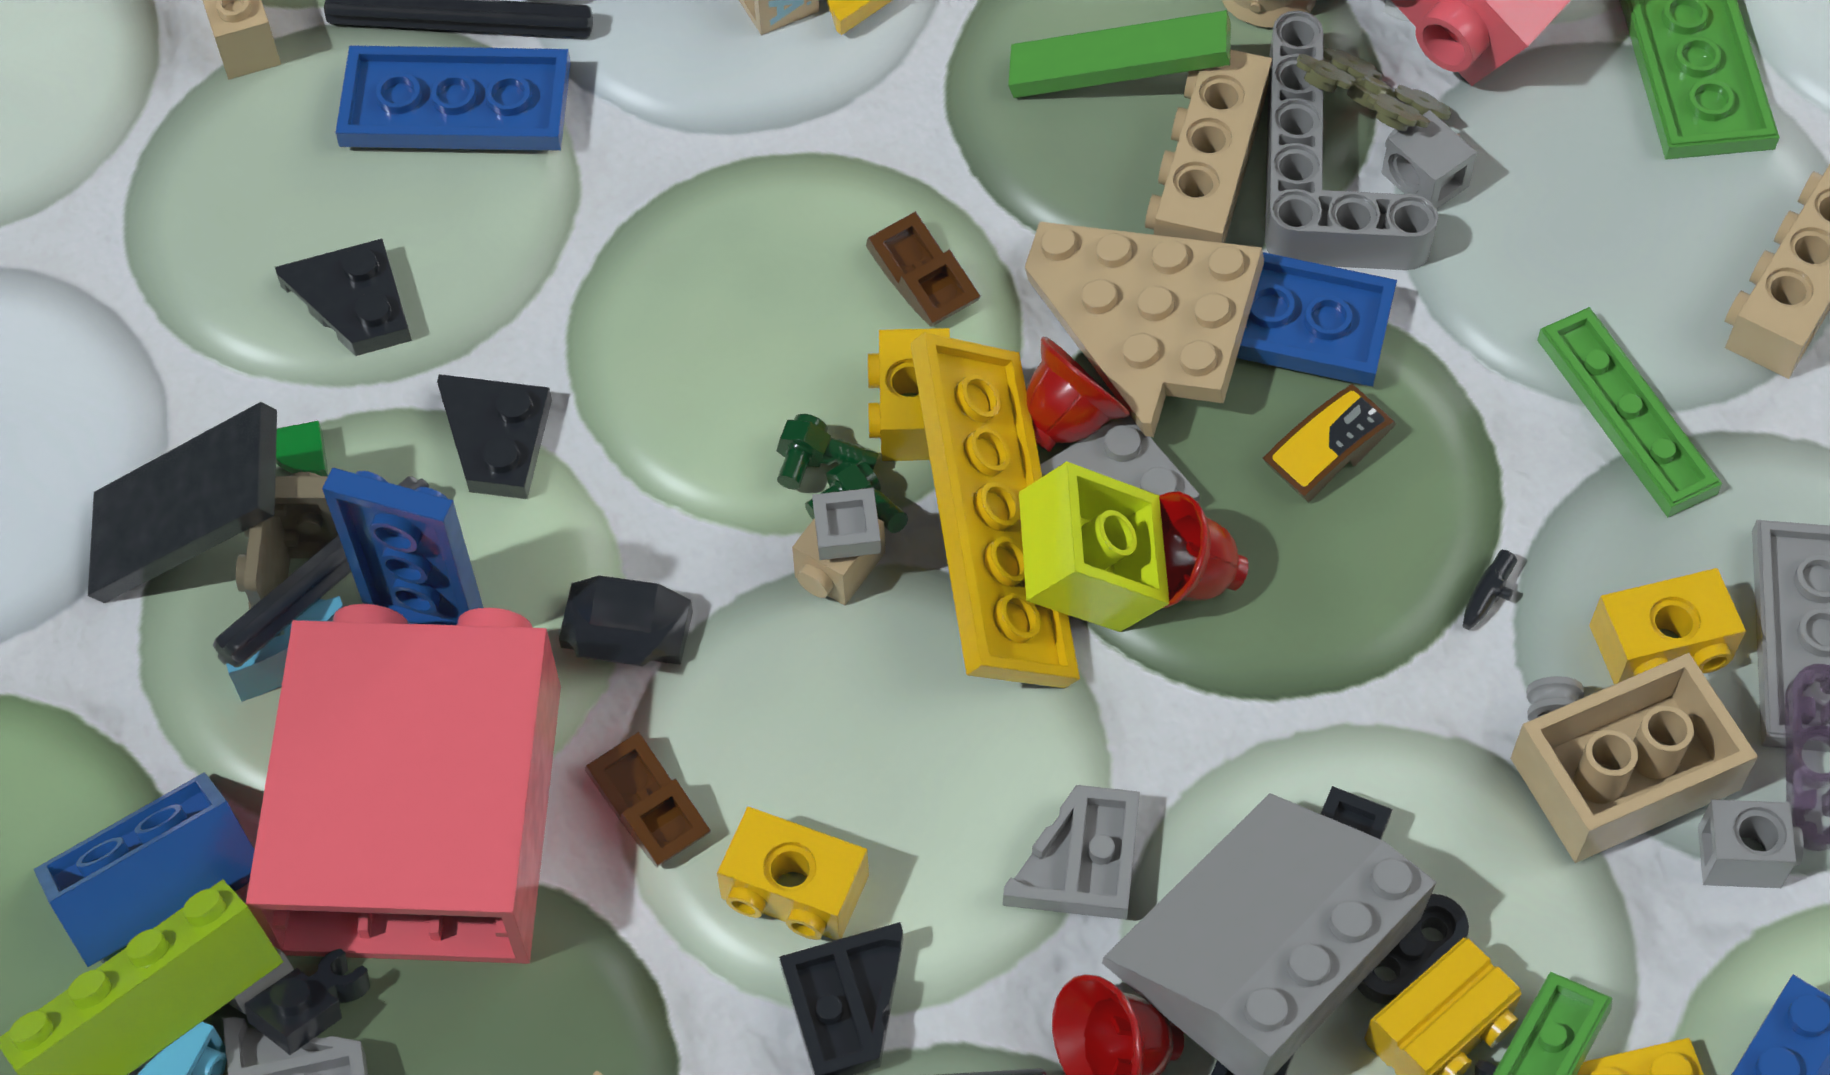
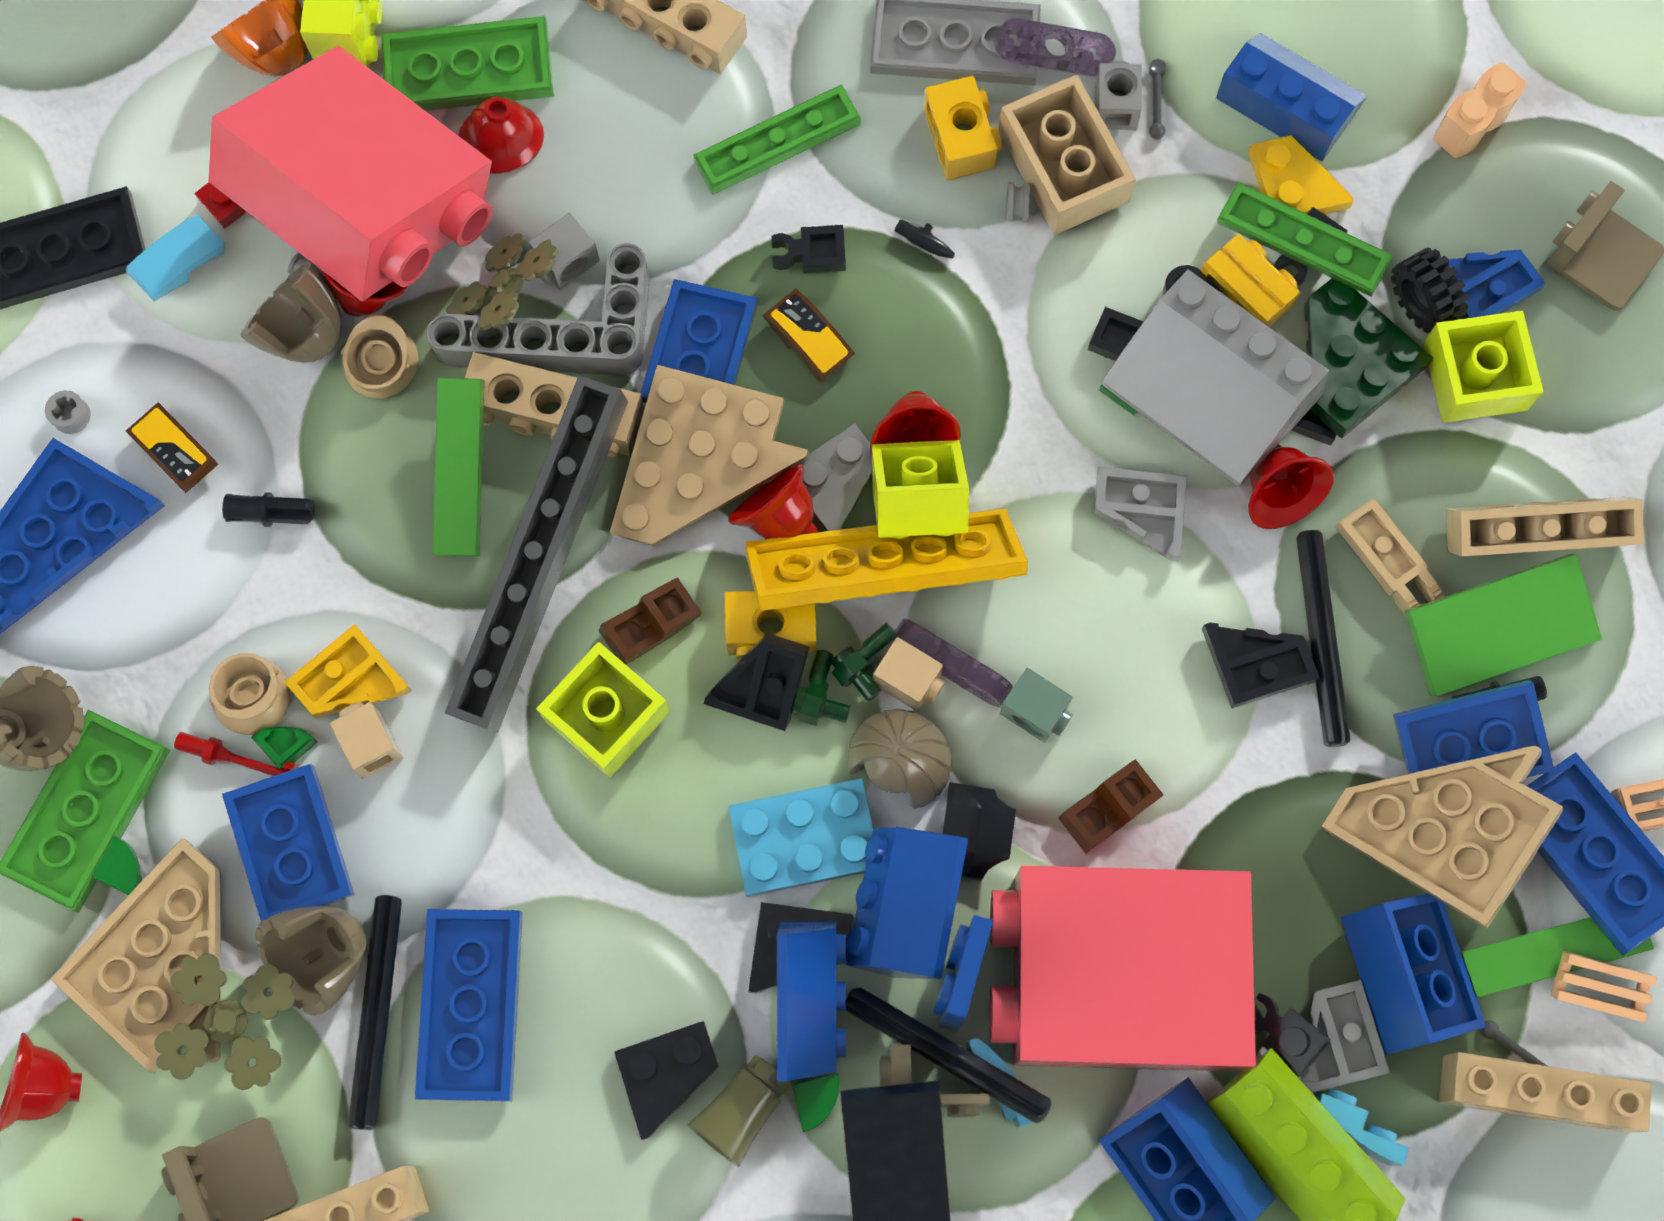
camera: 90 degrees left, 15 degrees up
(289, 359) = (740, 1110): none -> olive plant
(411, 406) = (809, 999): none -> blue slope
(537, 523) = (906, 903): none -> blue slope
(631, 441) = (802, 837): none -> medium azure plate
(728, 545) = (902, 755): none -> dark tan hair
(772, 846) = (1153, 718): yellow brick -> none
(789, 704) = (1037, 706): none -> sand green brick
(799, 208) = (604, 709): none -> neon yellow brick
(830, 379) = (763, 682): none -> black wing
(846, 524) = (910, 658): light grey plate -> none
(853, 605) = (957, 665): none -> clear purple beam
(1001, 122) = (537, 554): none -> dark grey brick
(1456, 452) = (819, 249): none -> black plate
(1597, 98) = (503, 133): none -> red hat
(1810, 917) = (1157, 70): none -> dark grey hinge

